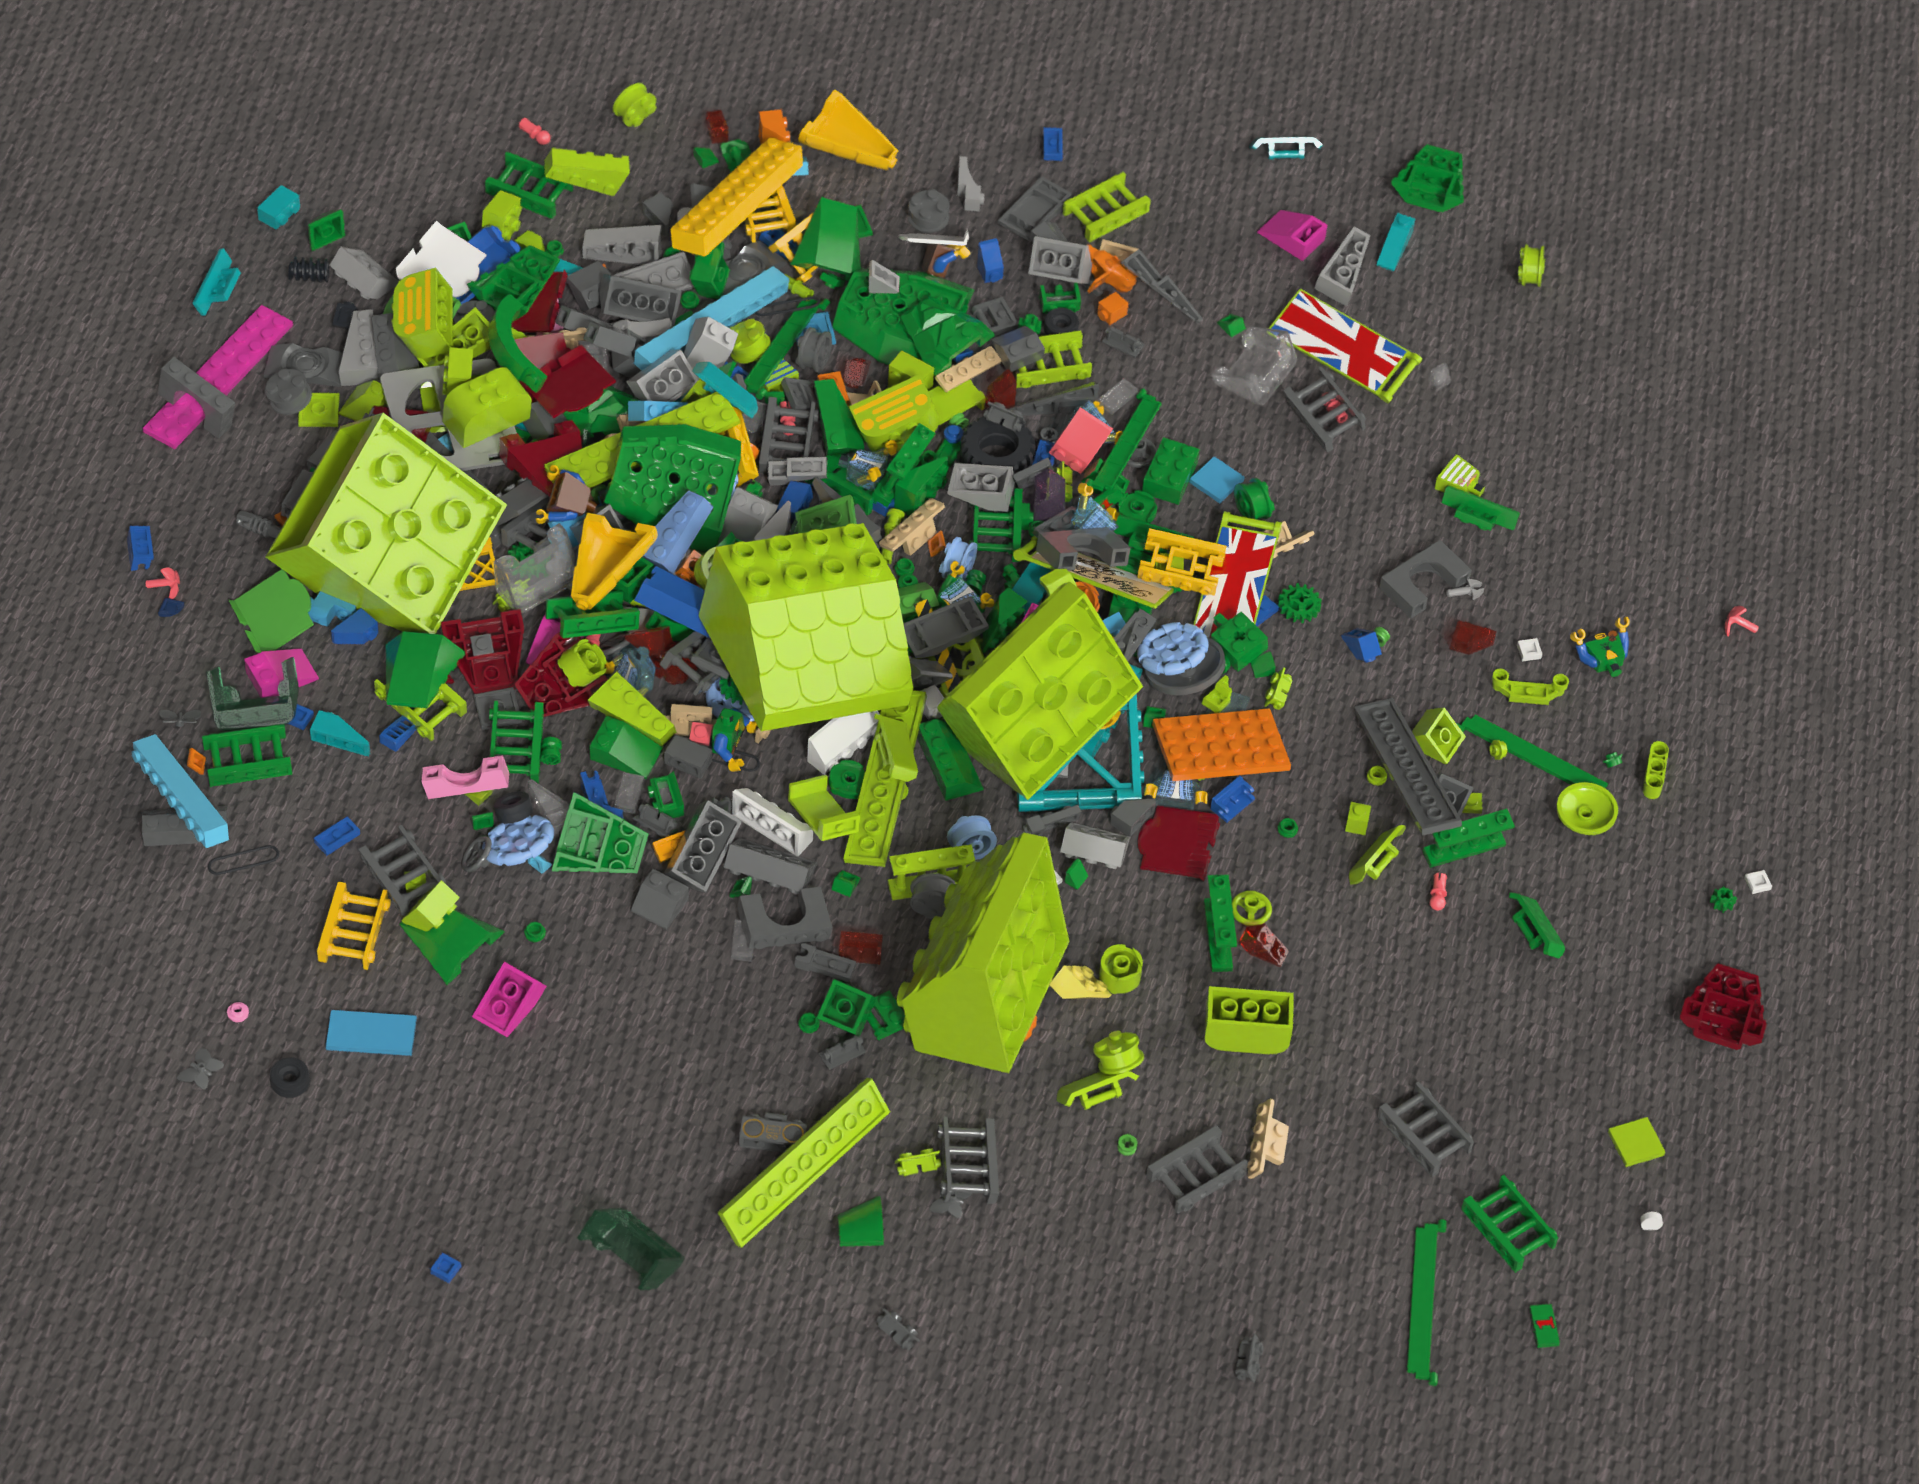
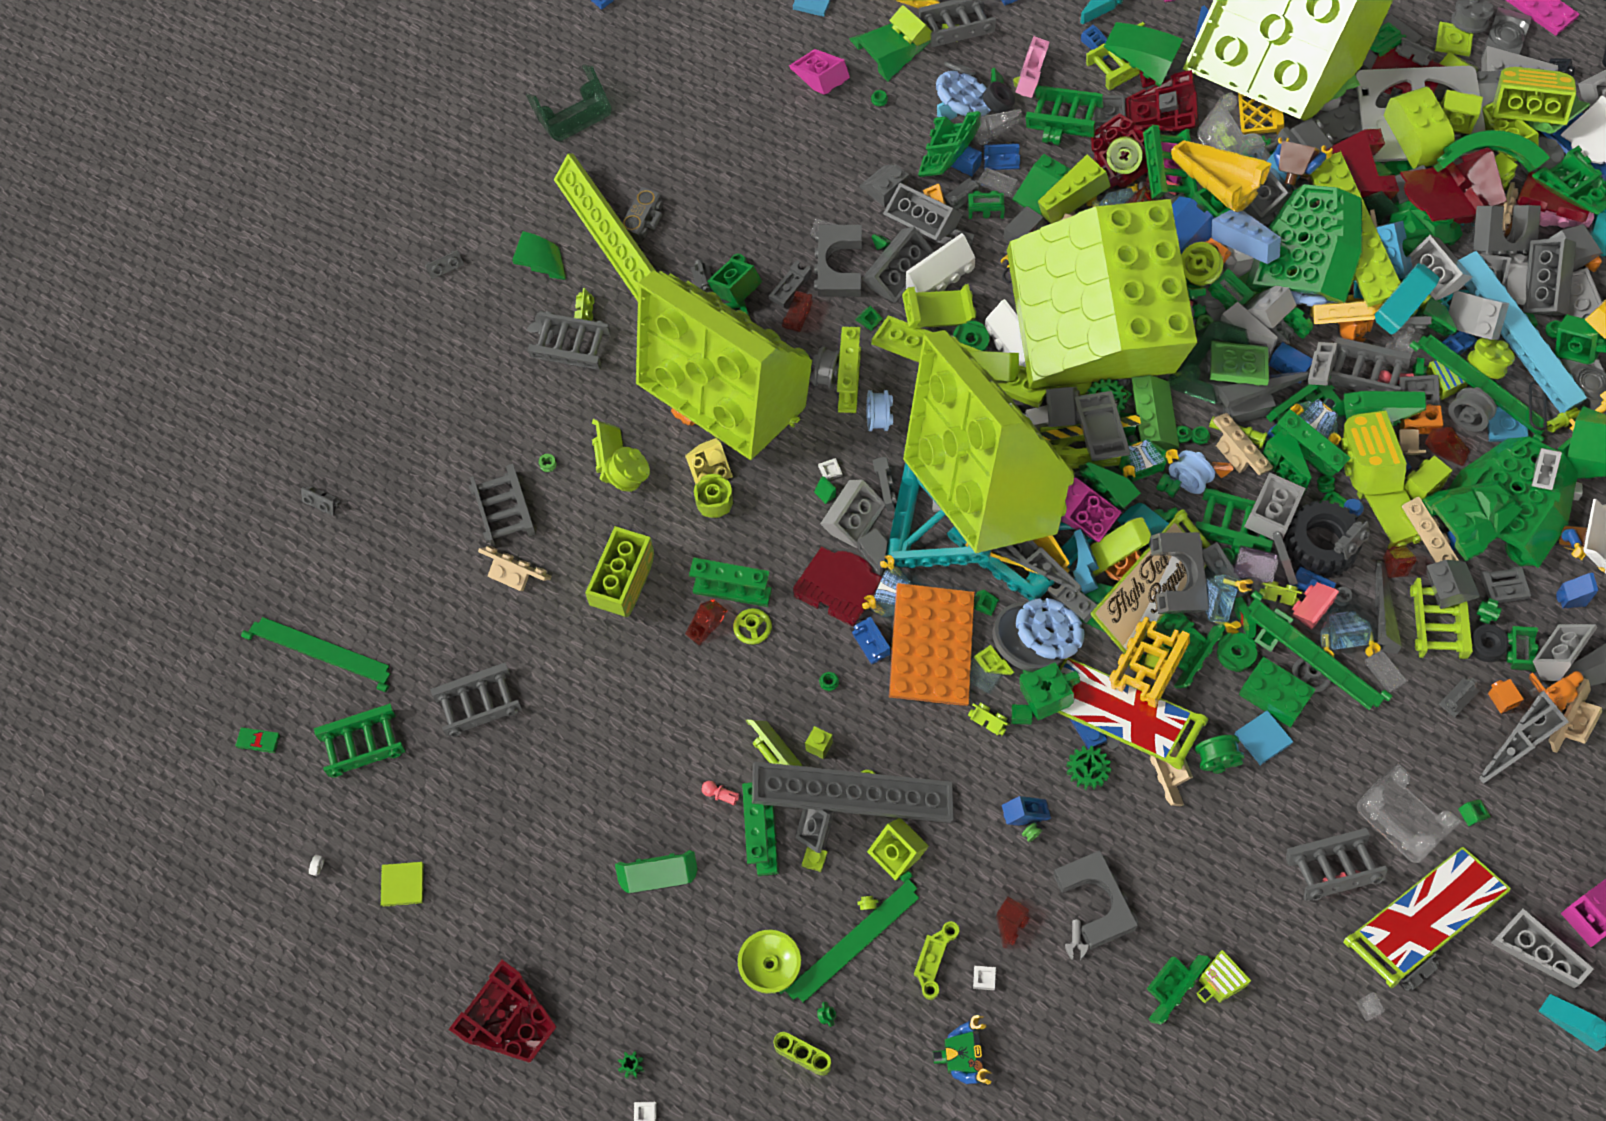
camera: 115 degrees right, 10 degrees up
(959, 420) = (1371, 517): bright green bush -> none

